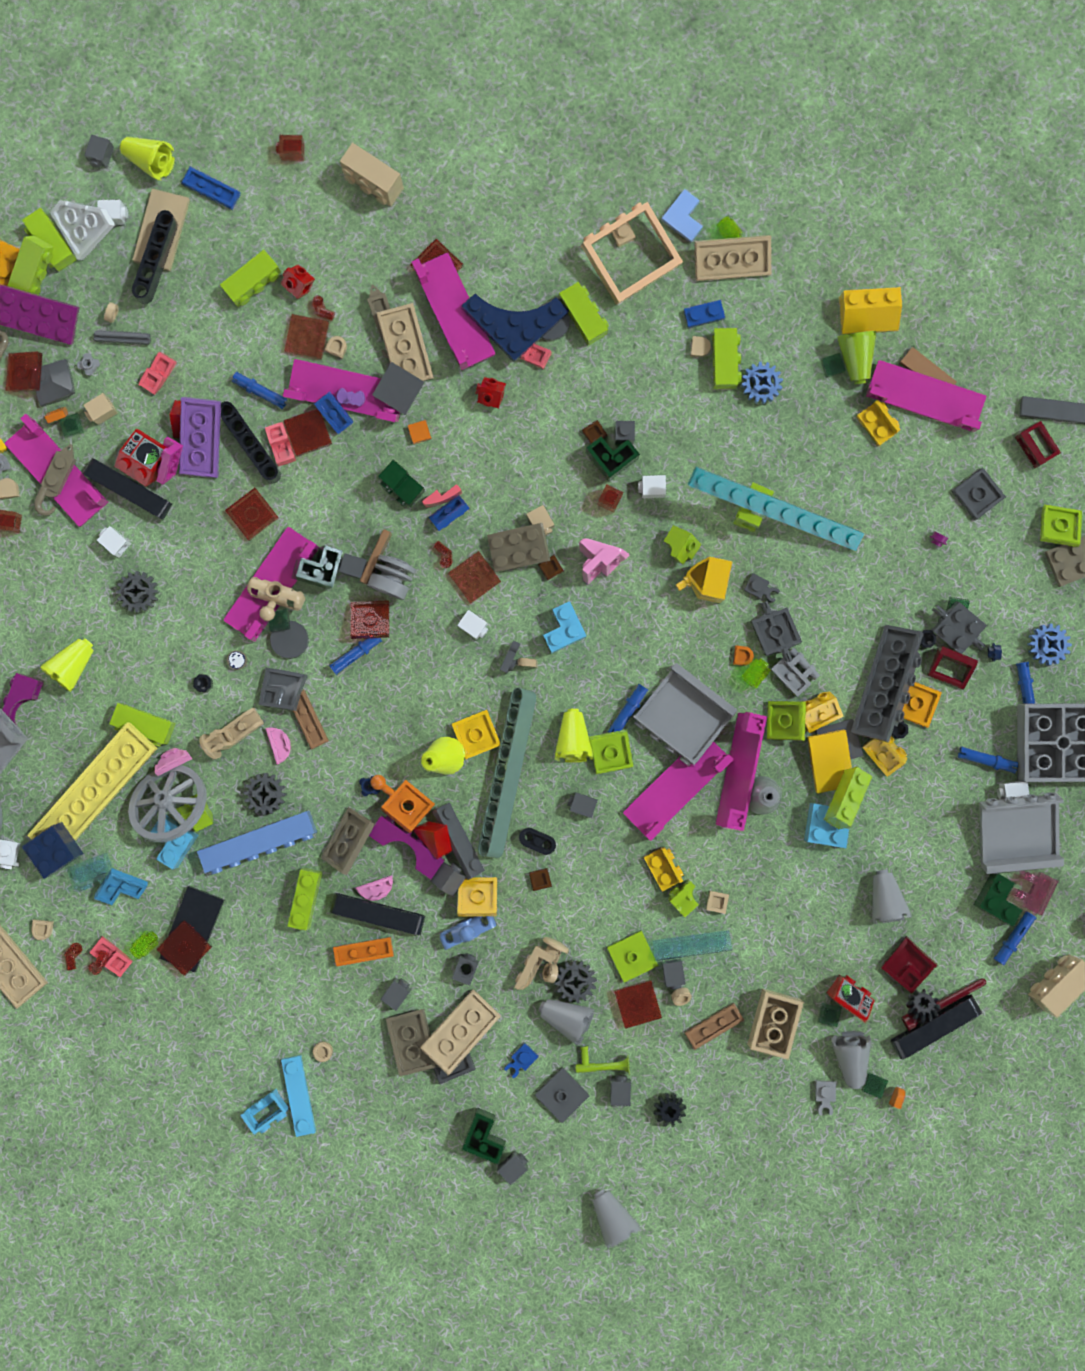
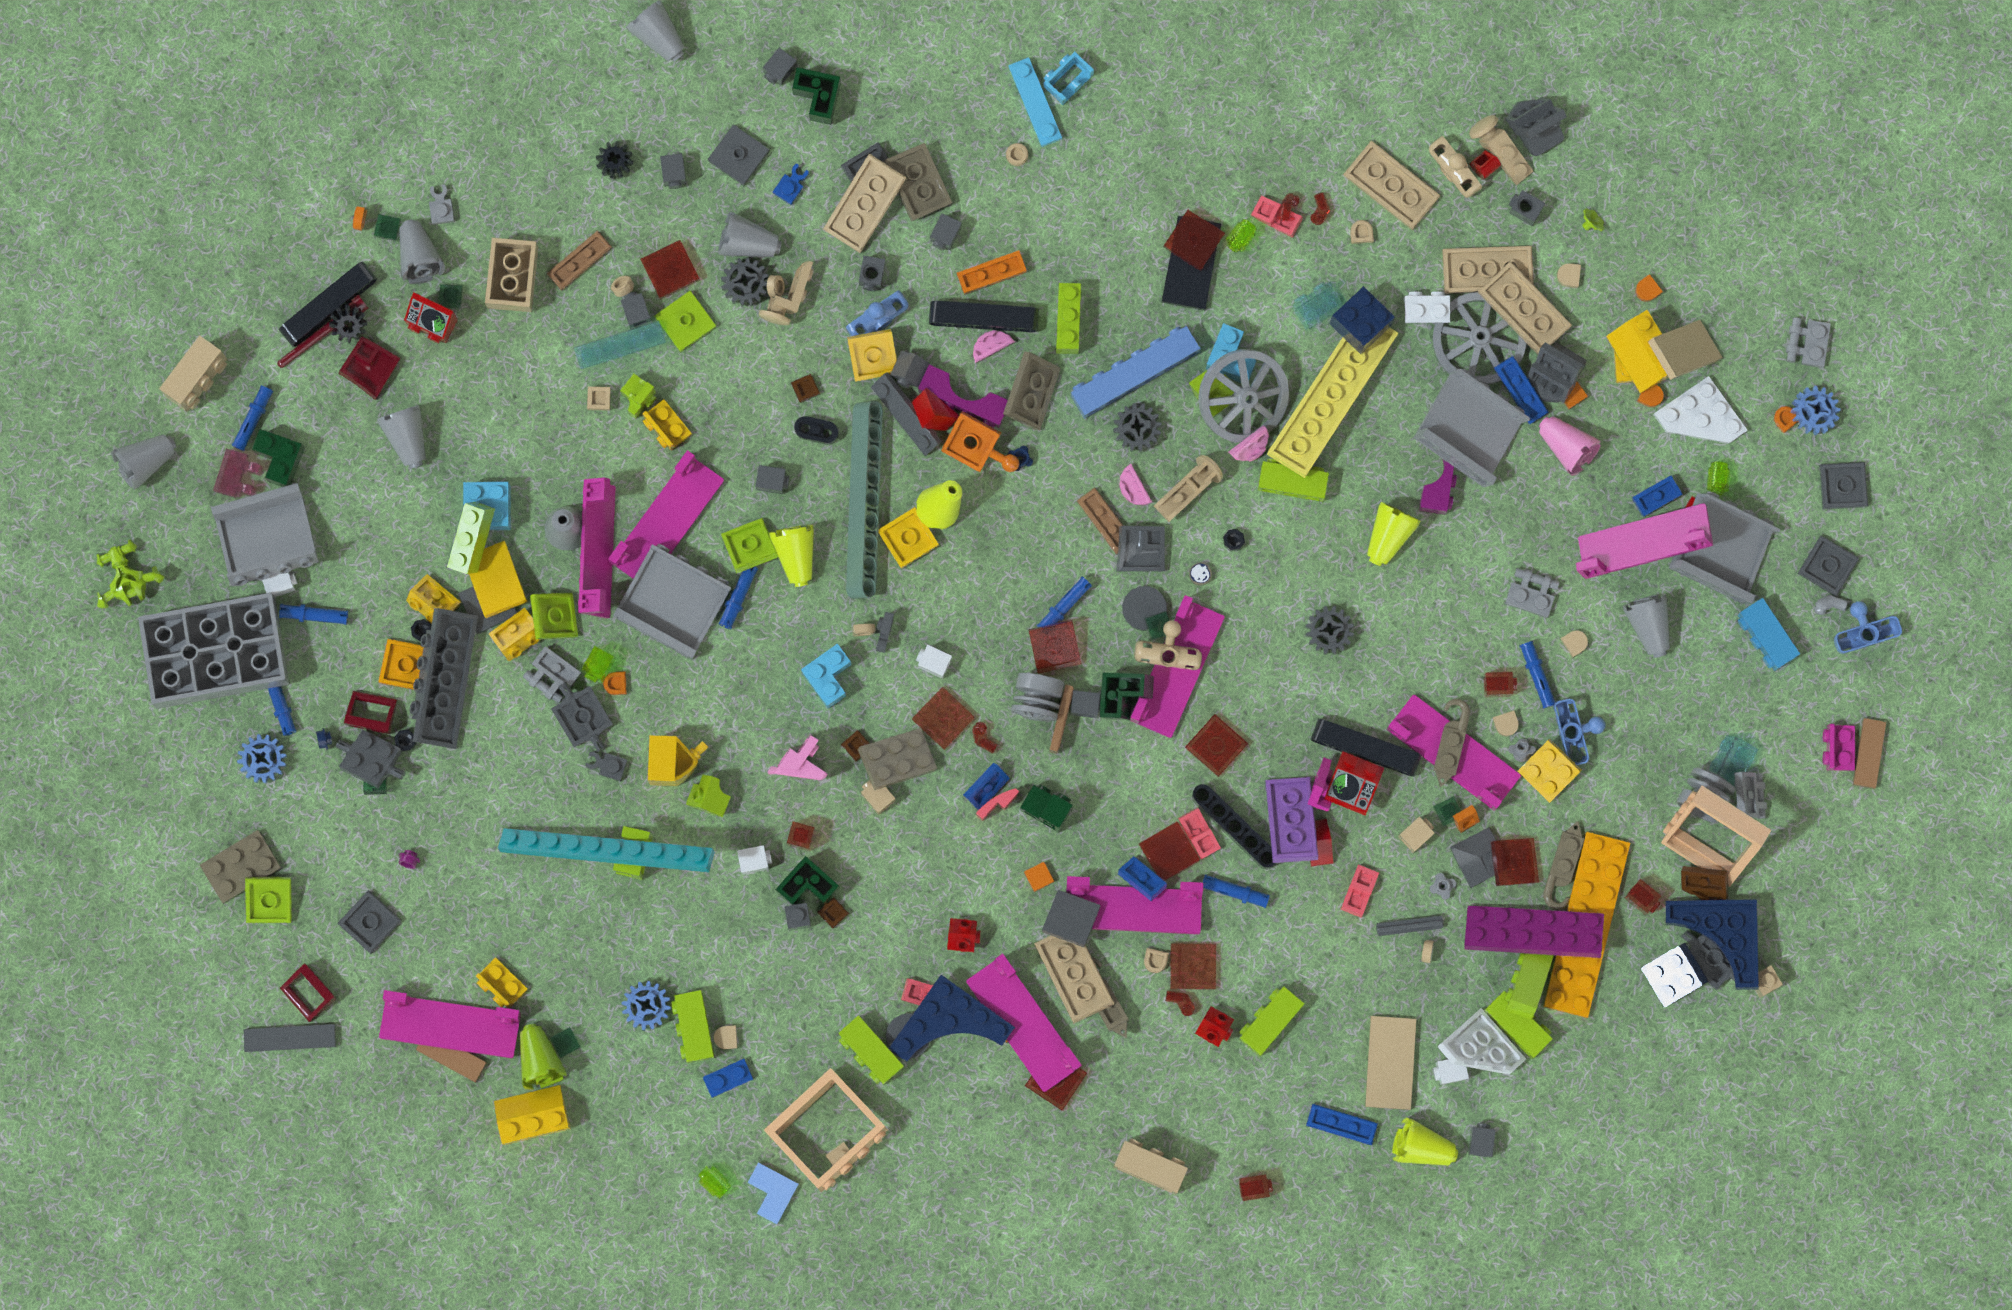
camera: 170 degrees right, 5 degrees down
(113, 541) = (1369, 683): white brick -> none
(119, 882) = (1280, 298): dark azure tile -> none
(152, 248) = (1387, 1034): black beam -> none
(350, 397) = (1125, 900): medium lavender piece -> none
(592, 1067) = (716, 190): lime piece -> none
(732, 257) = (705, 1148): tan tile -> none

